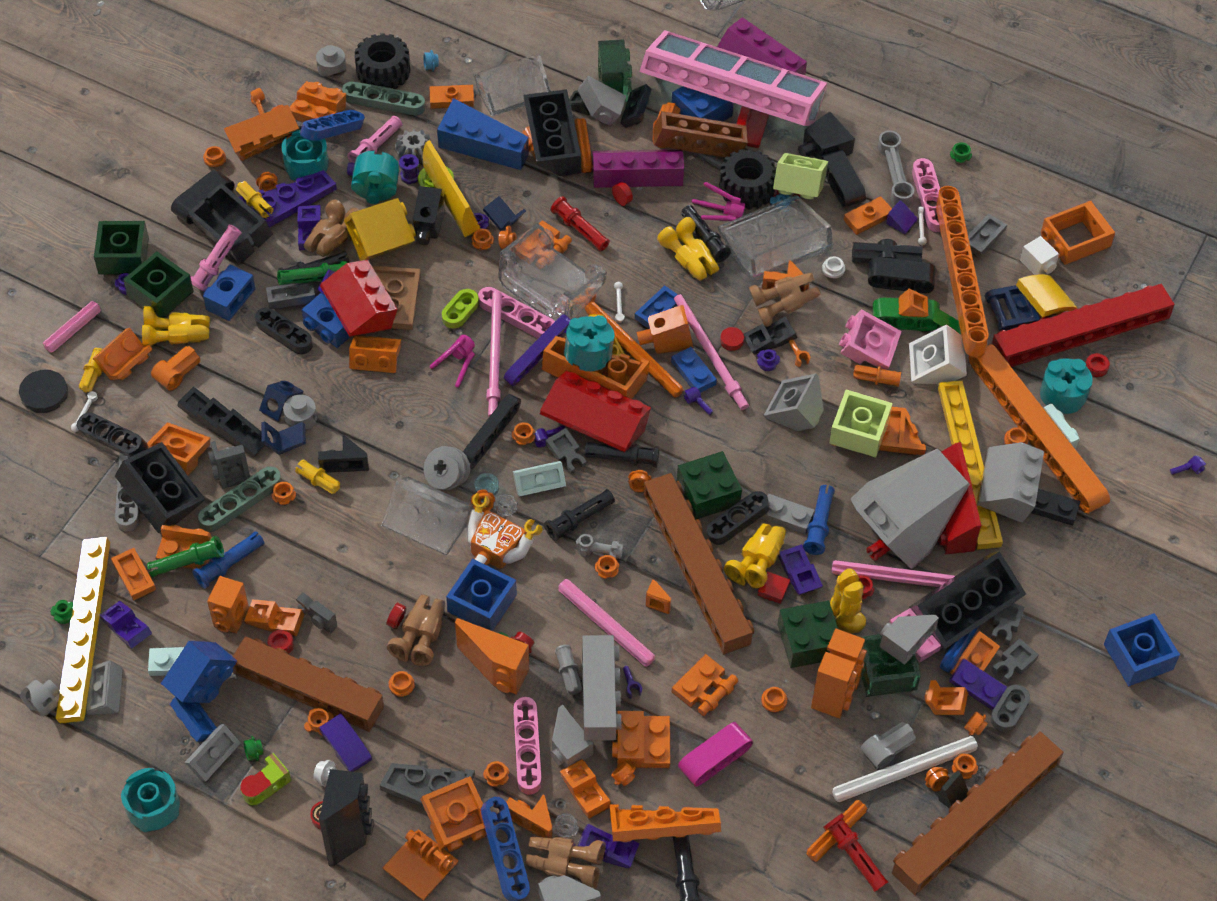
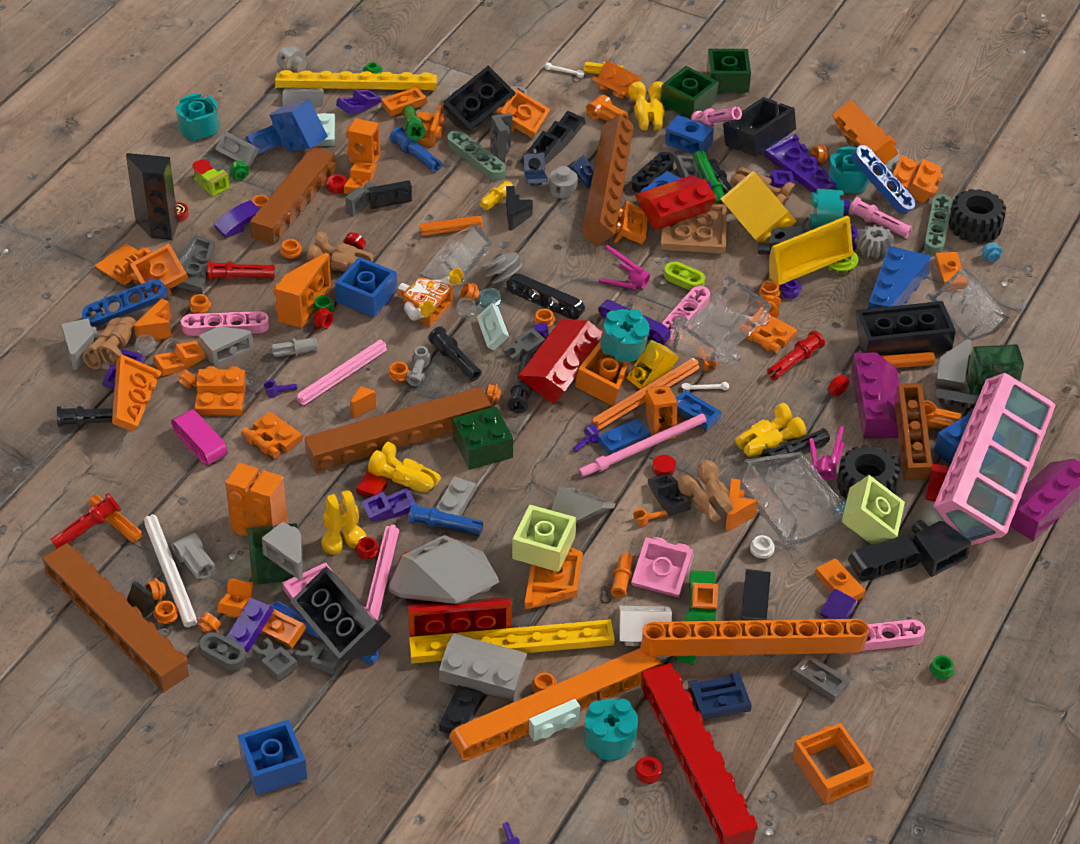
camera: 90 degrees right, 10 degrees down
(43, 391) = (583, 47): black tile -> none
(71, 326) = (649, 56): bright pink axle -> none
(113, 433) = (531, 75): black beam -> none
(197, 192) = (807, 120): black beam -> none
(254, 199) = (789, 139): yellow axle -> none
(256, 97) = (922, 143): orange hand -> none
(283, 488) = (480, 177): orange plate -> none
(305, 365) = (608, 180): none -> dark orange brick
(312, 572) = (390, 194): none -> black plate
(322, 771) = (211, 208): white plate -> none
(330, 60) = (975, 181): light grey piece -> none
(365, 523) = (450, 225): none -> orange axle
(440, 744) = (230, 270): none -> red pin
(494, 393) = (589, 299): bright pink bar -> none
(501, 214) = (800, 301): dark blue bracket -> none
(599, 687) = (261, 349): light grey wedge -> none
(736, 527) = (437, 449): black beam -> none
(768, 364) = (638, 491): dark purple plate -> none
(806, 632) = (308, 499): dark green brick -> none
(885, 248) = (783, 588): black piece -> none
(895, 167) = (910, 607): light grey piece -> none
(1039, 256) = (792, 723): white brick -> none
(1045, 295) = (734, 721): yellow slope -> none

